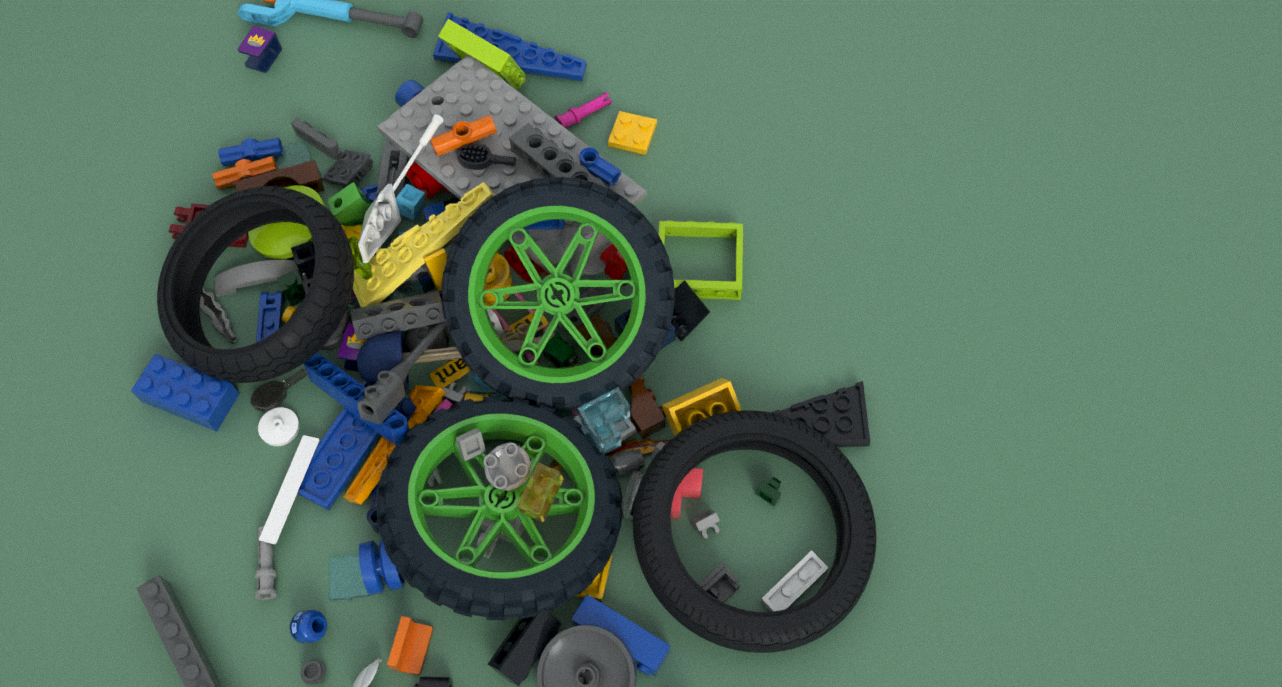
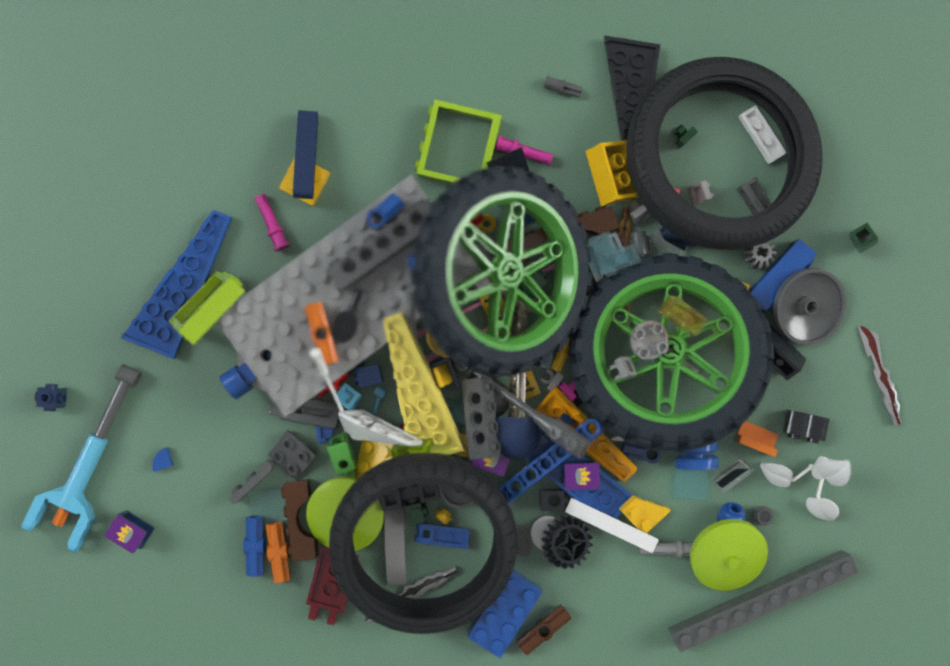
camera: 85 degrees left, 25 degrees up
(172, 445) = (534, 638): none -> reddish brown piece
(259, 630) = (728, 554): none -> lime dish
(260, 426) = (571, 555): none -> black gear
(306, 523) = (643, 513): none -> yellow wing
(316, 412) = (544, 499): none -> black brick
(333, 66) = (162, 460): none -> blue tile
(345, 437) = (581, 475): none -> dark purple piece
(361, 622) = (732, 475): none -> clear slope
(621, 308) = (491, 219): none -> yellow plate
(634, 606) = (762, 260): none -> light grey gear
(656, 122) = (305, 154): none -> dark blue beam
(712, 302) = (531, 153): none -> dark pink pin
(793, 350) = (562, 86): none -> dark grey axle

